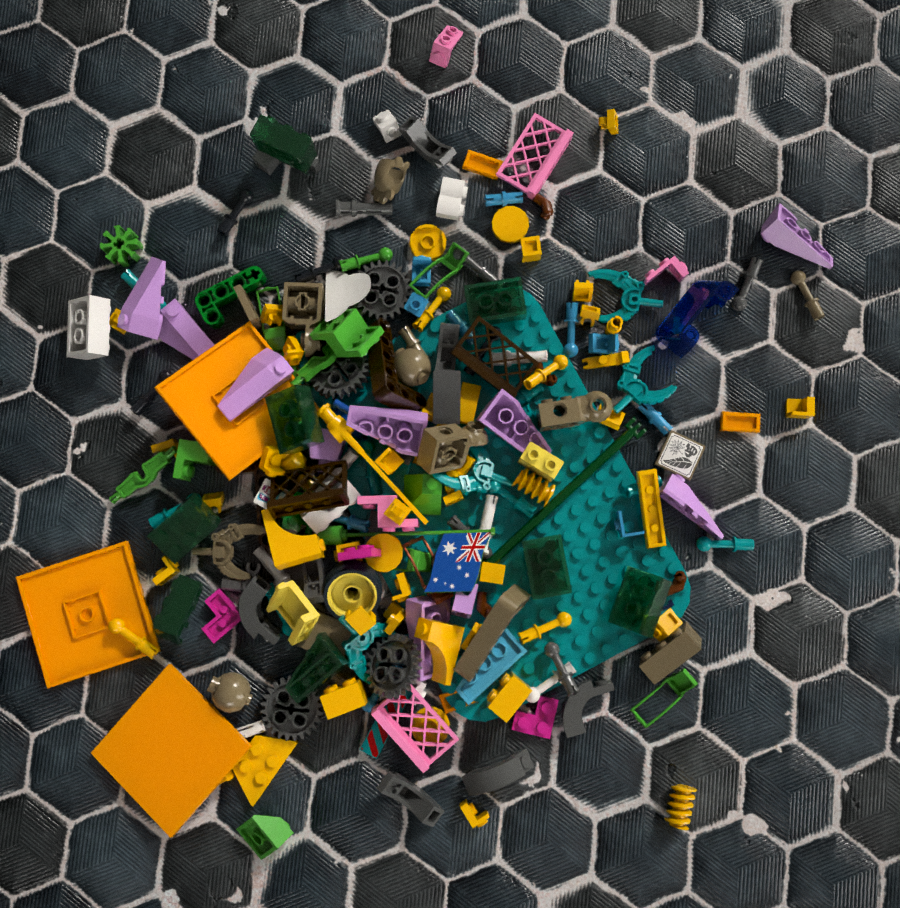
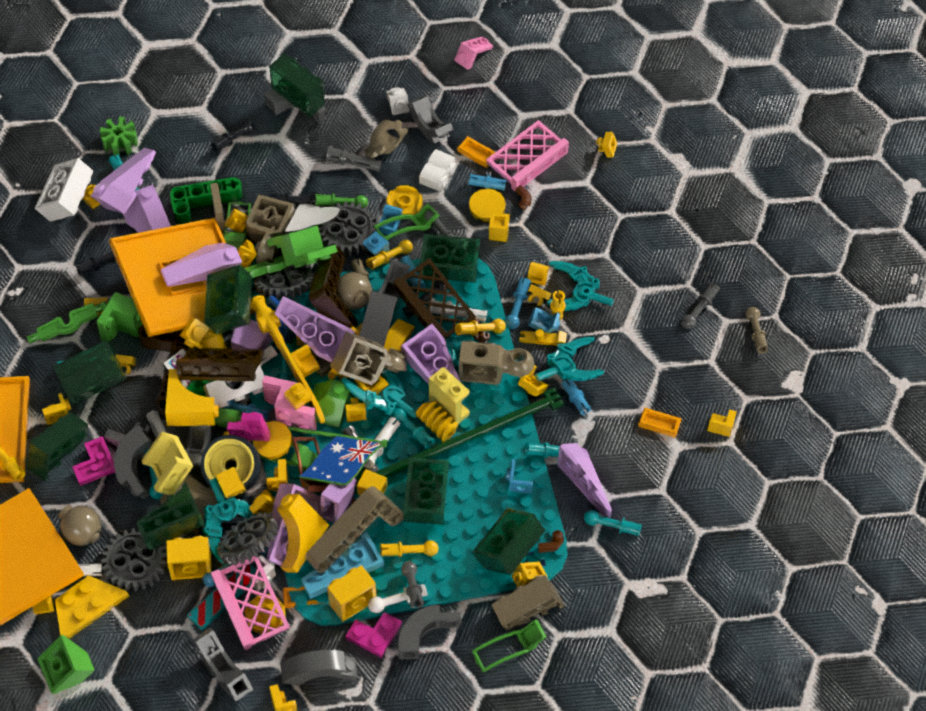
camera: 10 degrees right, 25 degrees down
(224, 550) = (119, 402): dark tan bar -> none
(651, 508) = (546, 468): yellow tile -> none
(676, 267) = (626, 270): bright pink bracket -> none
(676, 328) = (659, 302): clear blue windscreen -> none
(680, 455) = (592, 435): tile -> none
(785, 234) = (748, 269): lavender wedge -> none

